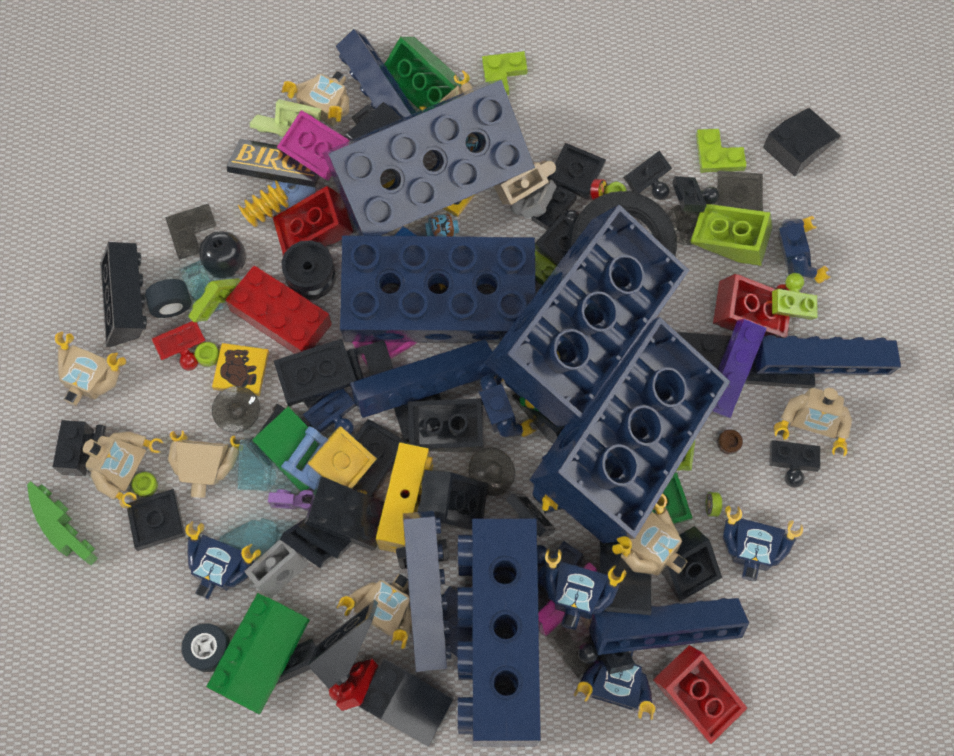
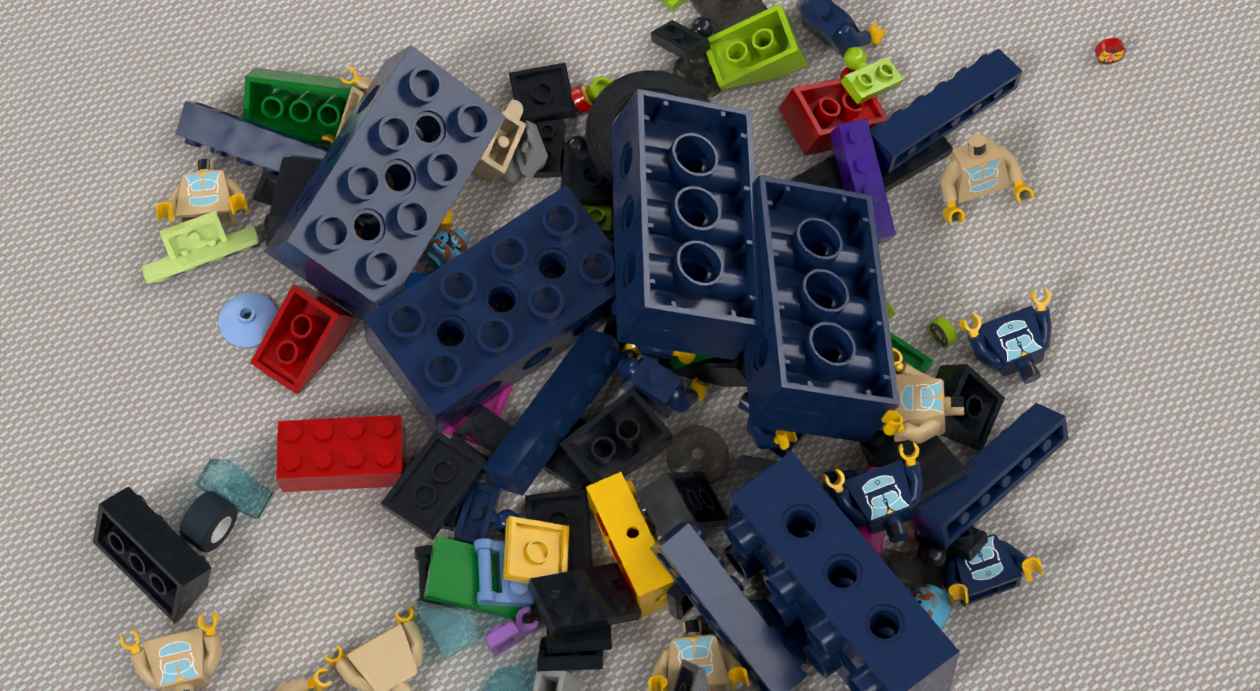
camera: 30 degrees left, 5 degrees down
(180, 341) = (256, 559): red plate -> none
(185, 225) = (159, 440): clear smoke plate -> none
(207, 354) = (295, 552): lime tile -> none
(215, 293) = (262, 476): lime plate -> none
(222, 254) = (226, 435): black cylinder -> none
(230, 400) = (373, 570): clear smoke dish -> none
(240, 367) = (346, 542): tile -> none
(264, 204) = (234, 352): yellow piece -> none
(270, 163) = (209, 301): tile -> none
(307, 141) = (236, 253): dark pink tile -> none
(309, 269) = (339, 384): black wheel -> none
(504, 65) = (373, 39): lime plate -> none
(559, 683) = (935, 603): none -> medium azure head
(648, 174) = (621, 49): black plate -> none
(700, 693) = (1068, 520): red slope -> none
(730, 442) = (911, 261): reddish brown tile -> none
(796, 457) = (987, 231): black plate -> none

